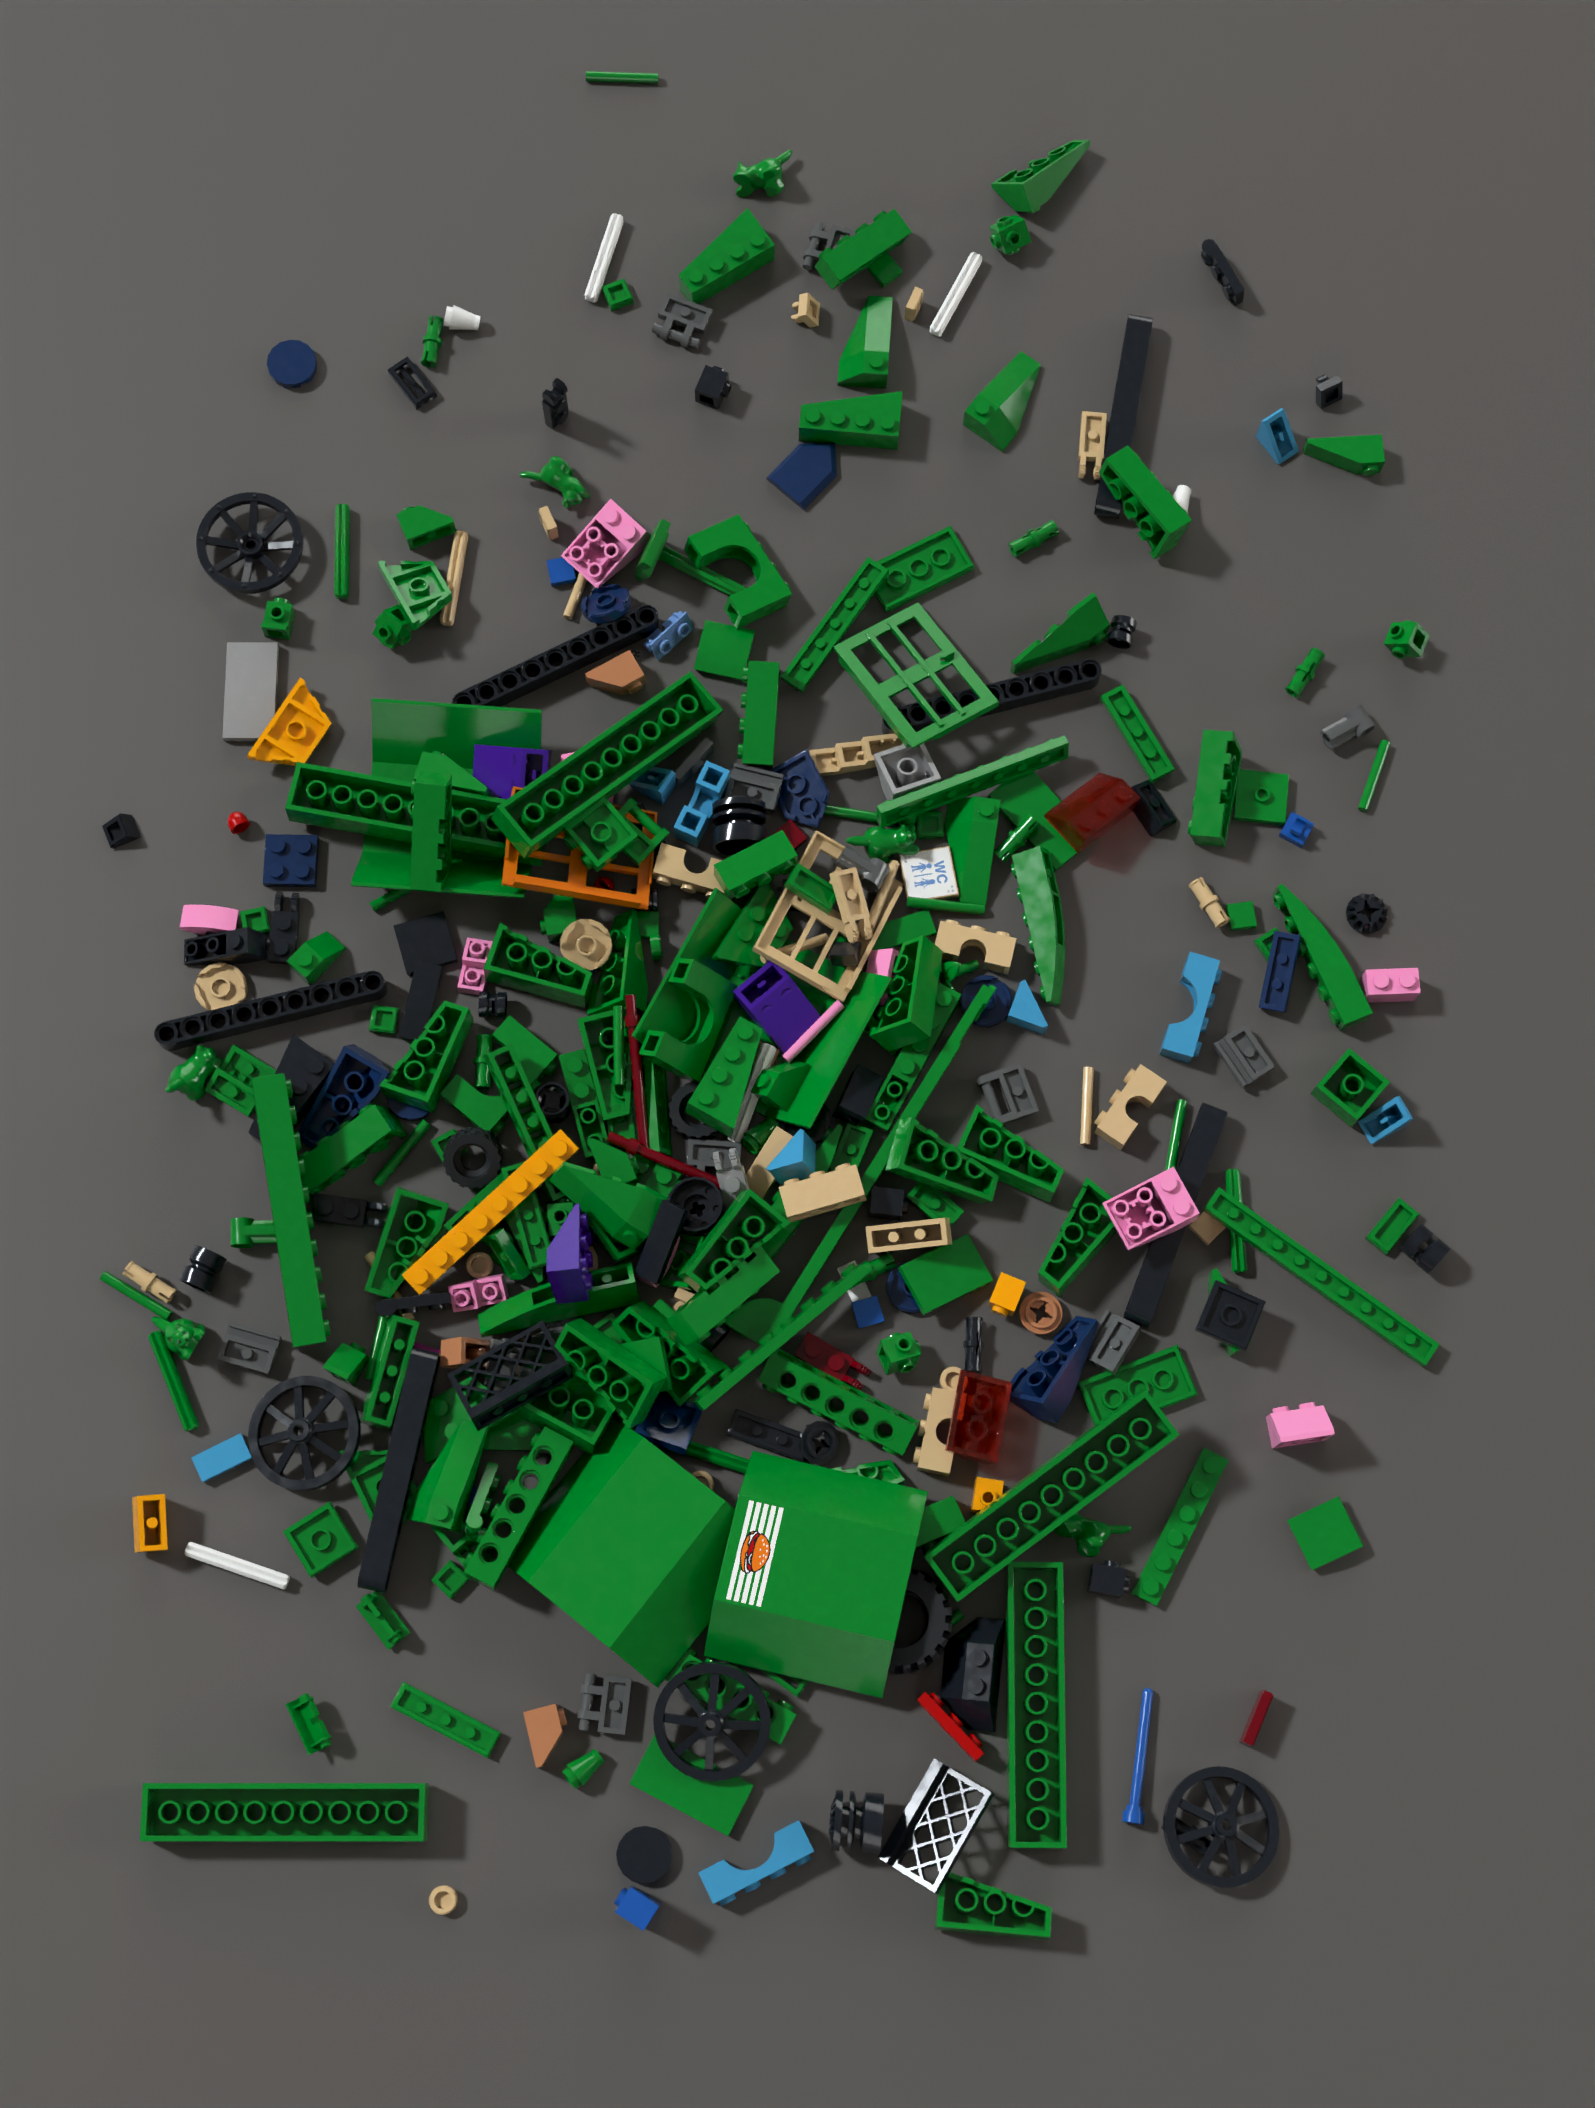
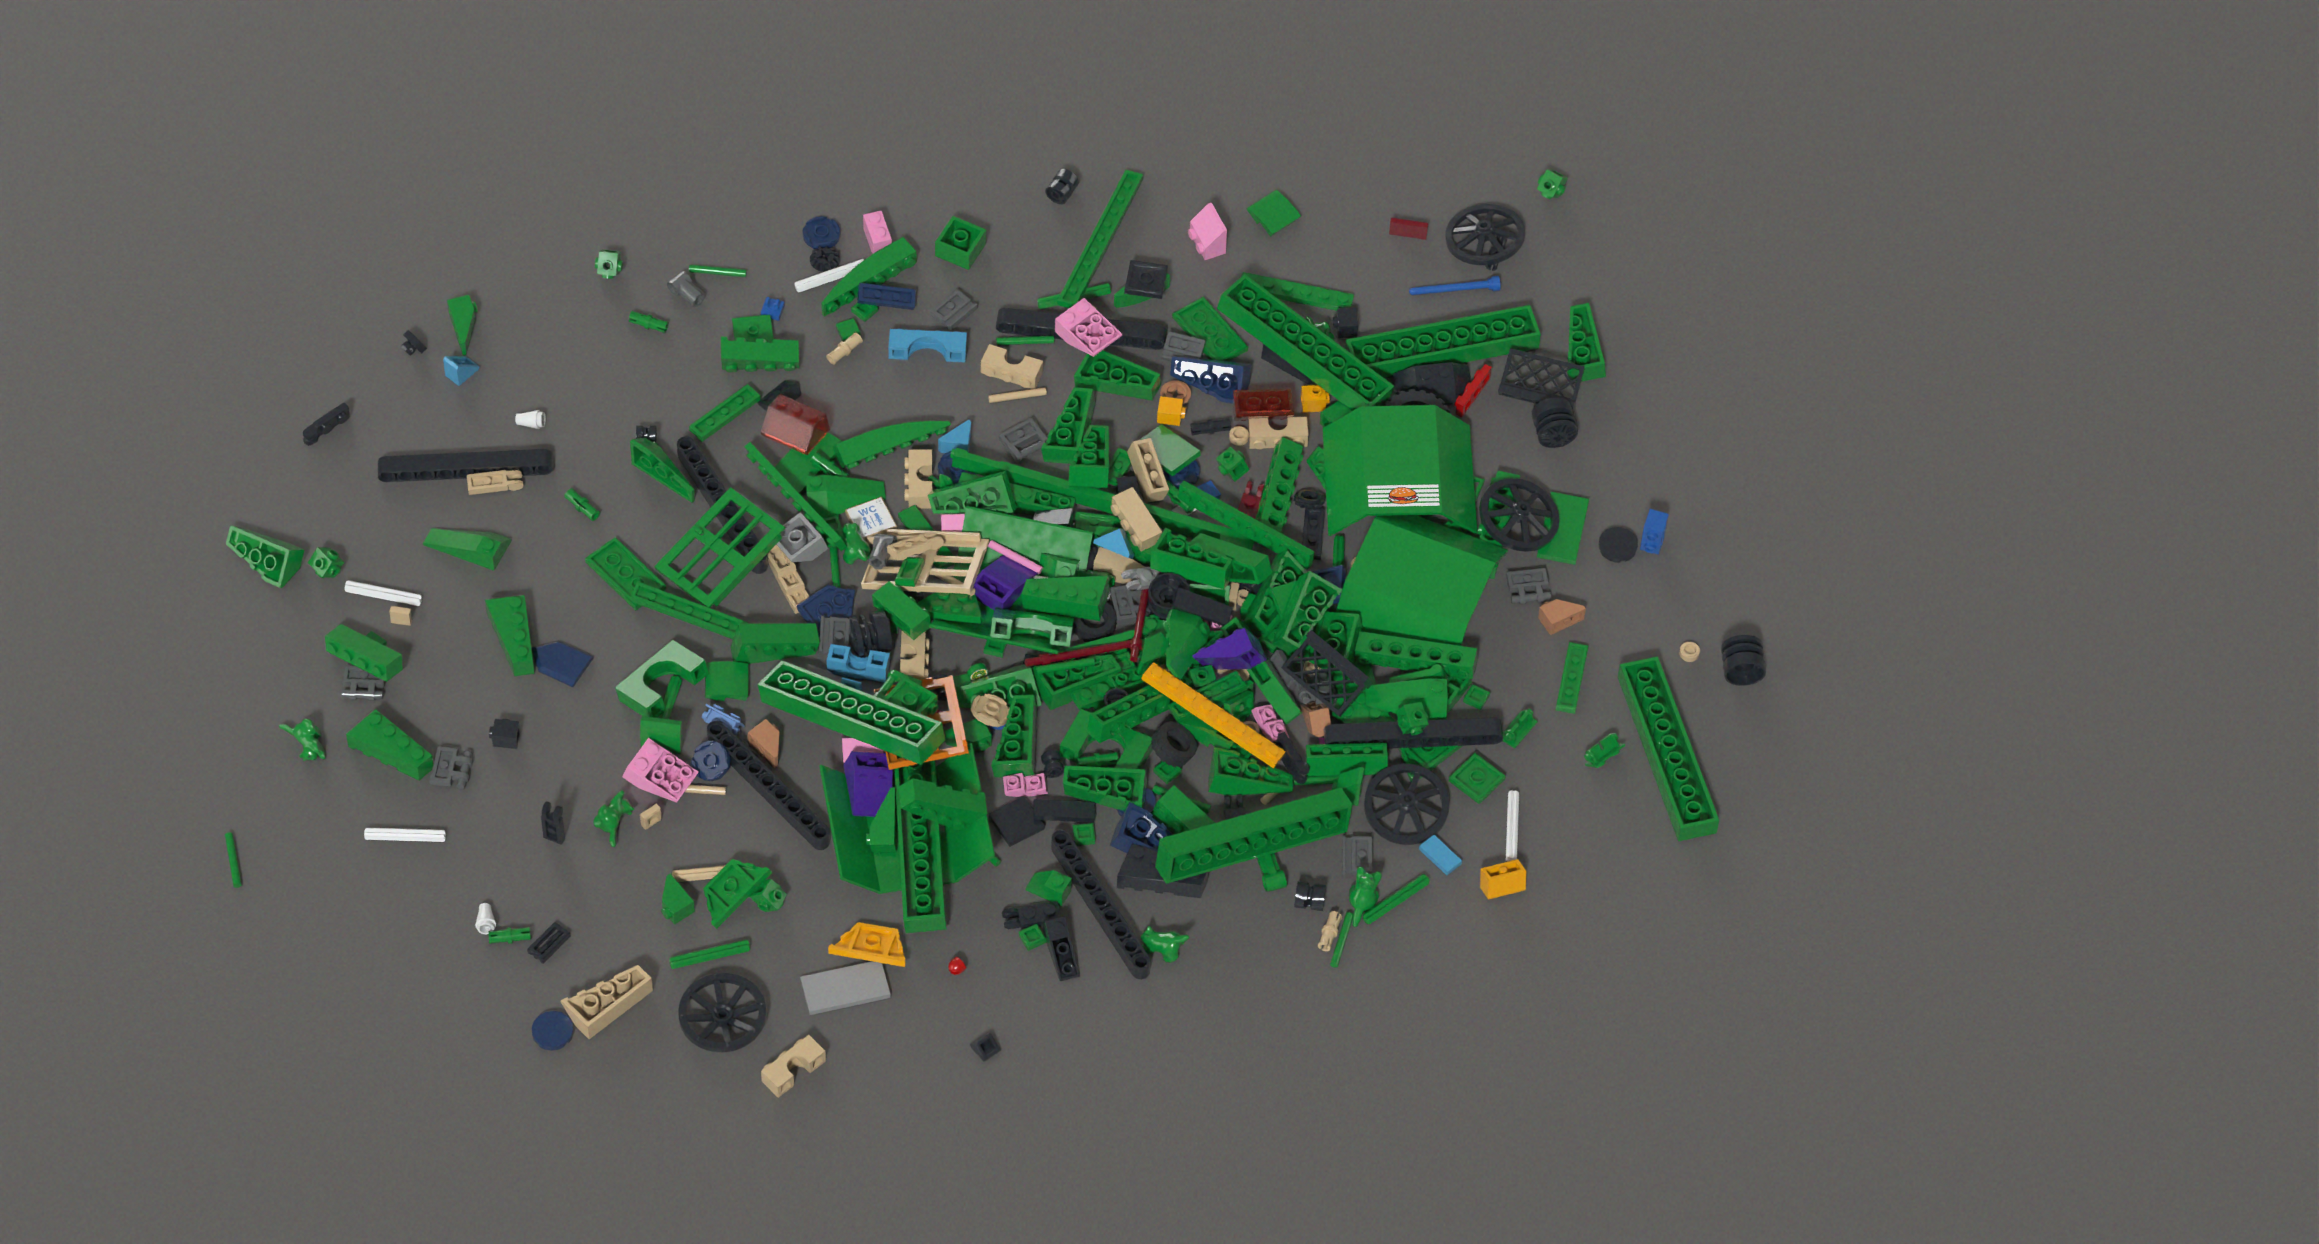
camera: 105 degrees left, 20 degrees down
(149, 589) = (804, 1053): none -> tan arch
(205, 918) = (1041, 963): bright pink slope -> none
(220, 986) = (1091, 946): tan tile -> none
(234, 1079) = (1158, 912): green slope -> none
(279, 626) = (780, 980): green brick -> none
(290, 860) = (976, 925): dark blue plate -> none
(299, 413) = (607, 1001): none -> tan wedge
(391, 1966) = (1743, 660): none -> black wheel
(399, 1463) = (1412, 718): none -> green brick
(560, 572) = (688, 803): blue tile -> none
(581, 1769) = (1576, 589): green cone -> none
(617, 294) = (435, 818): green tile -> none
(724, 1880) = (1584, 463): dark azure arch -> none
(793, 834) = (864, 607): dark red tile -> none
(808, 310) = (422, 684): tan tile -> none
(845, 954) = (952, 543): black slope -> none
(867, 350) = (446, 637): green wedge -> none
(945, 905) = (892, 503): green bar -> none
(1145, 501) = (541, 429): green wedge -> none
(1292, 1957) = (1552, 184): none -> green brick
(1336, 910) = (825, 277): none -> white axle
(1385, 1120) = (974, 214): dark azure slope -> none
(1392, 1226) = (1049, 210): green tile -> none
(1412, 919) = (821, 232): none -> dark blue tile

